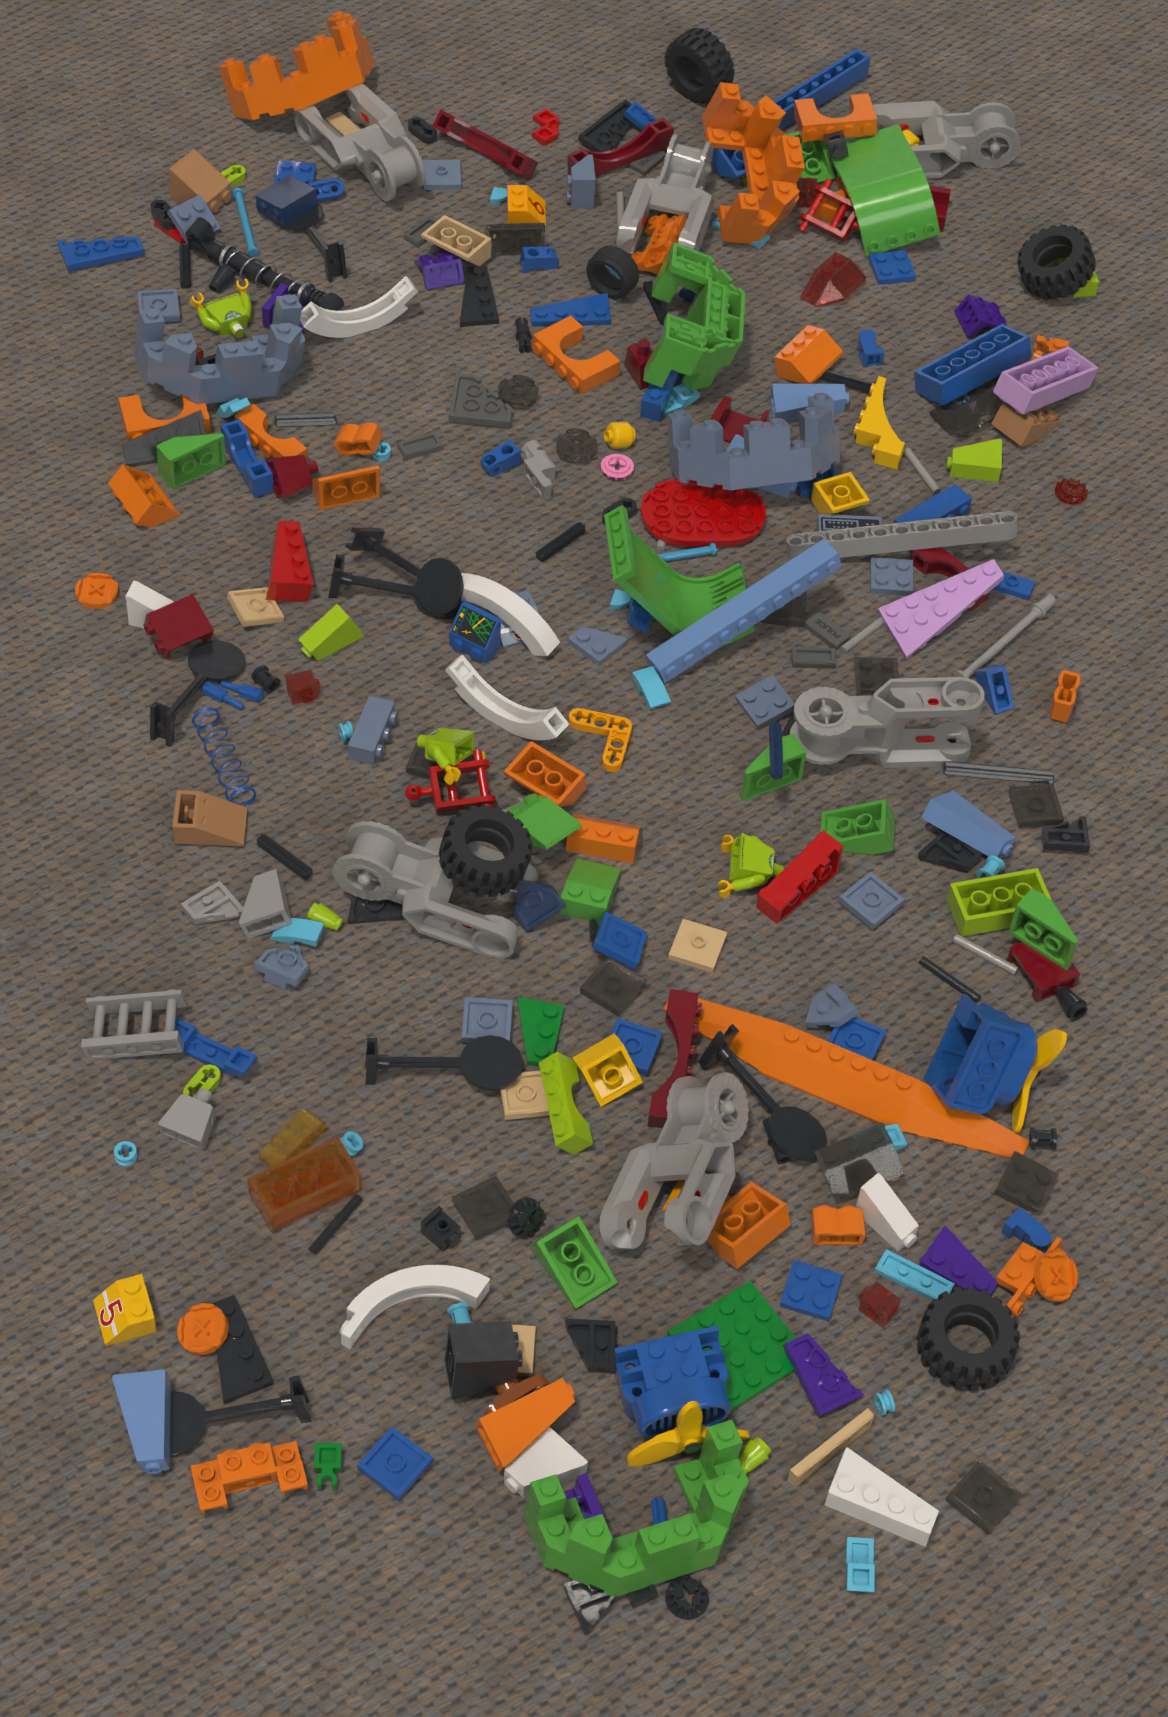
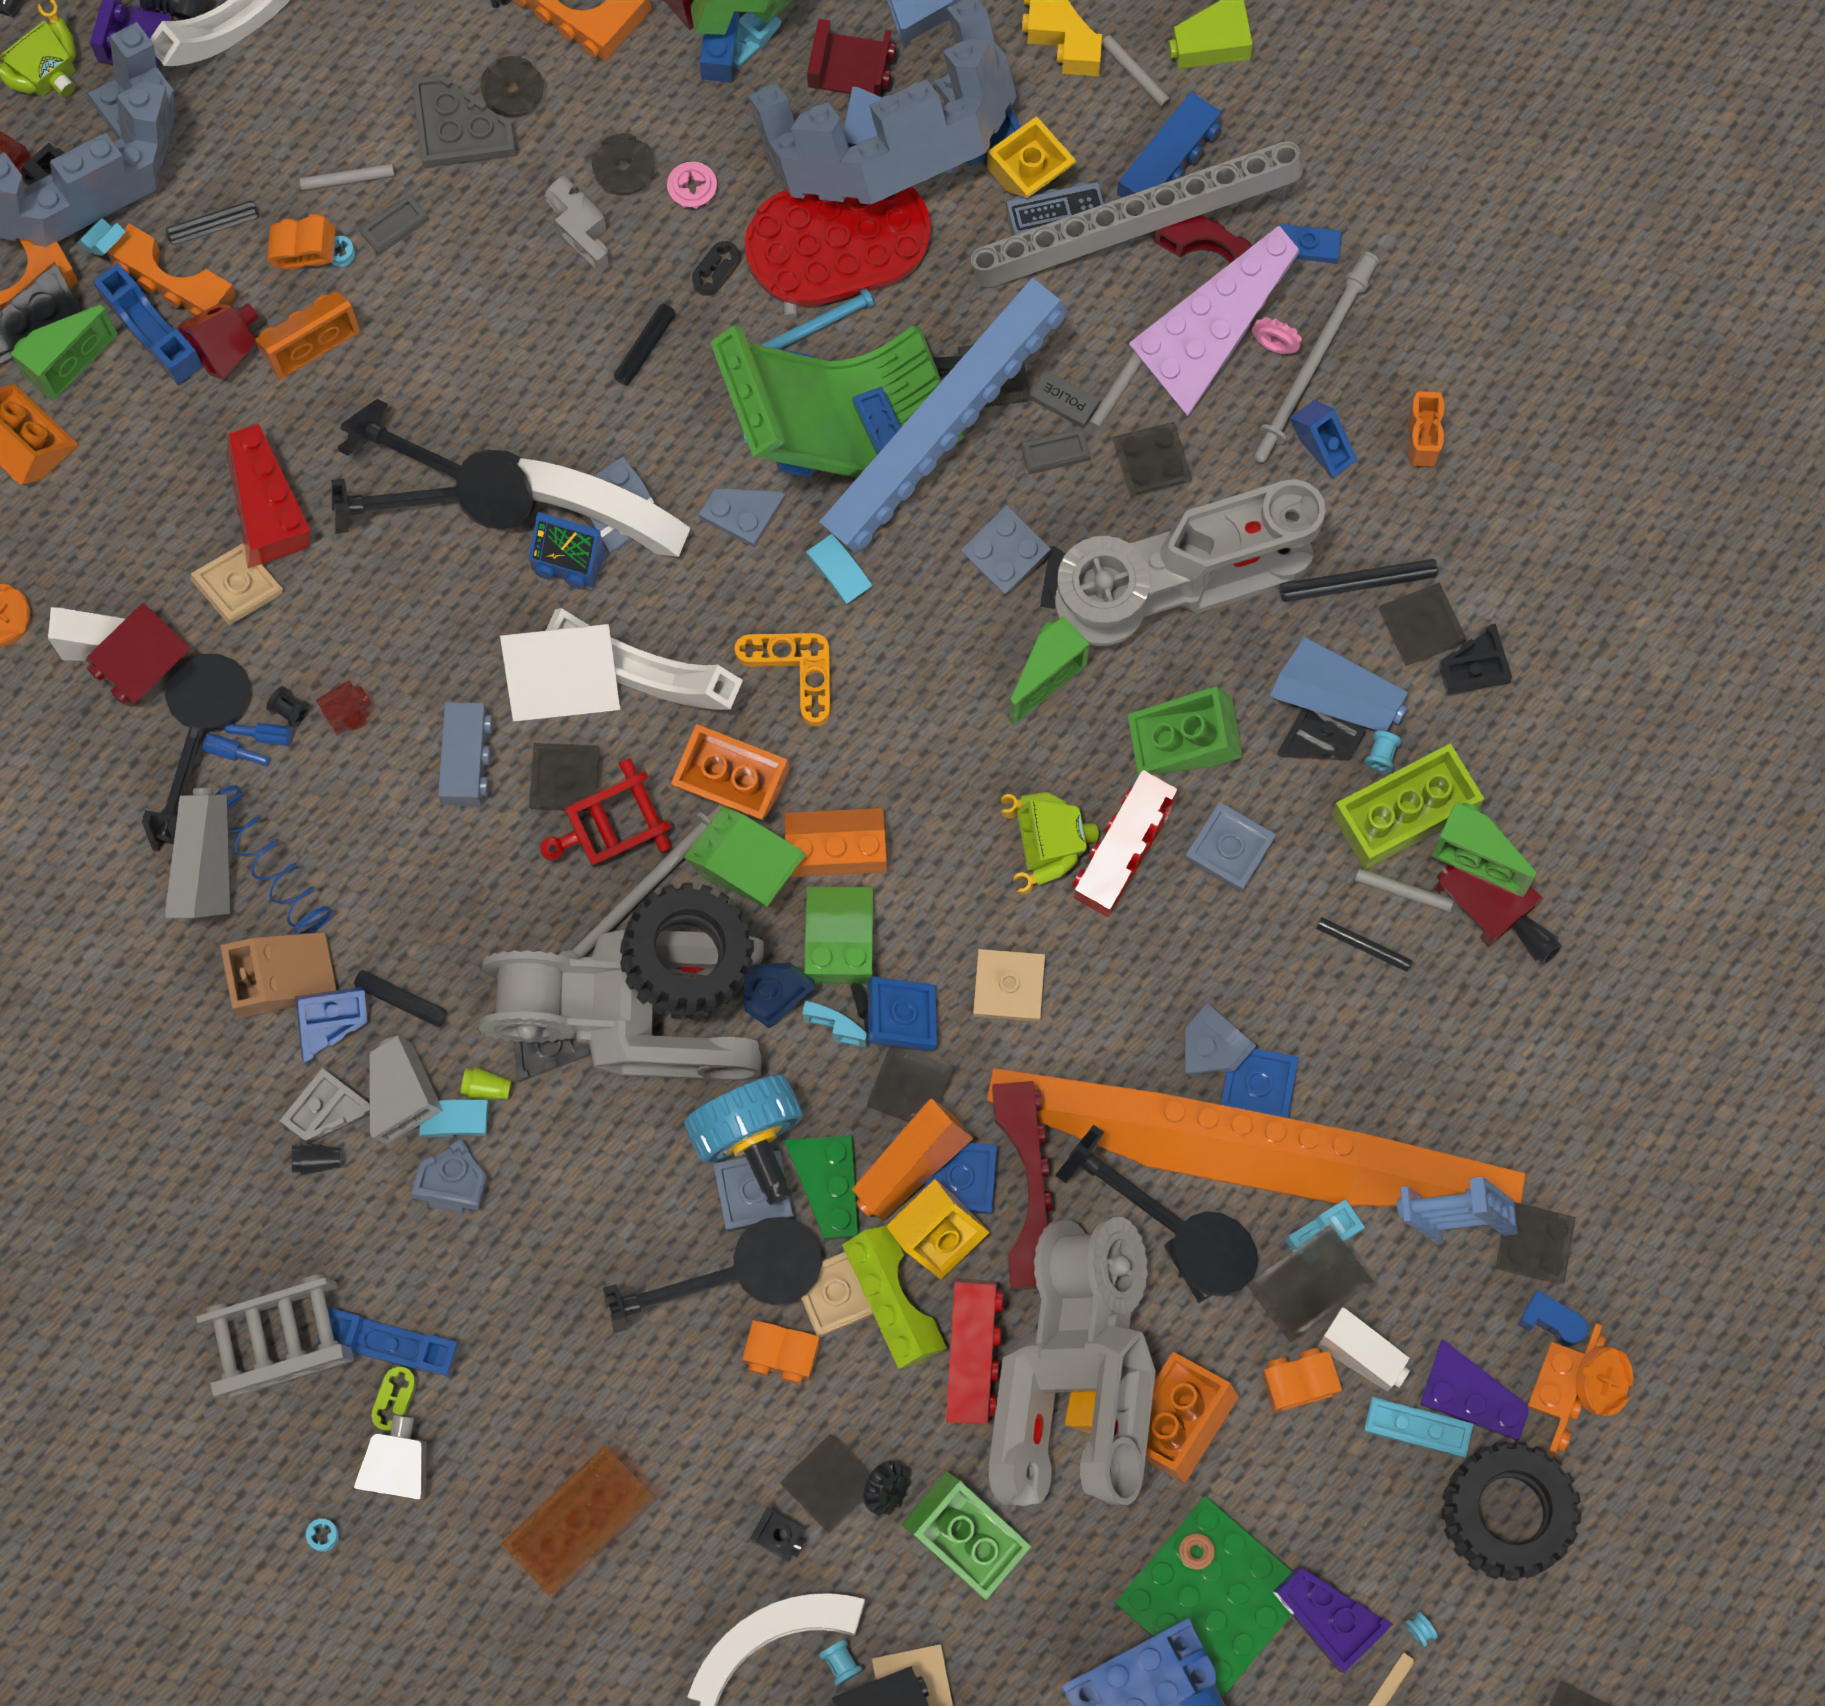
camera: 10 degrees left, 20 degrees up
(180, 740) = (200, 857): none -> light grey slope
(195, 931) = (314, 1158): none -> black cone
(233, 854) = (328, 1017): none -> wing
(293, 1138) = (542, 1450): clear yellow beam -> none
(330, 634) = (359, 607): lime slope -> none
(335, 1224) = (634, 1562): black bar -> none
(345, 731) = (427, 765): medium azure bush -> none
(352, 1143) = (625, 1429): medium azure bush -> none
(398, 415) = (347, 177): none -> light grey bar
(448, 748) = (583, 769): lime torso -> none
(450, 695) = (560, 672): none -> white sticker
(477, 1119) = (780, 1351): none -> orange brick
(494, 970) = (746, 1124): none -> dark azure wheel
(501, 458) = (520, 219): blue leg -> none
(578, 941) = (843, 1028): none -> medium azure slope
(594, 1343) = (1024, 1647): black wing -> none
(610, 1146) = (971, 1351): none -> red wedge
(611, 1012) = (911, 1160): none -> orange slope
(619, 435) = (681, 129): yellow head -> none
(699, 606) = (876, 417): none -> blue plate
(737, 1302) = (1196, 1540): none -> nougat plate
(775, 748) = (1046, 655): dark blue axle -> none
(810, 1290) = (1287, 1485): blue plate -> none
(878, 1304) = (1381, 1485): clear red brick -> none
(891, 576) = (1134, 275): sand blue plate -> none
(970, 621) = (1276, 336): none -> bright pink gear
(990, 1060) = (1450, 1088): blue brick -> none
(994, 1124) = (1476, 1207): none -> medium blue fence
(1043, 1138) = (1543, 1167): black bush -> none
(1071, 497) = (1358, 61): clear red gear -> none

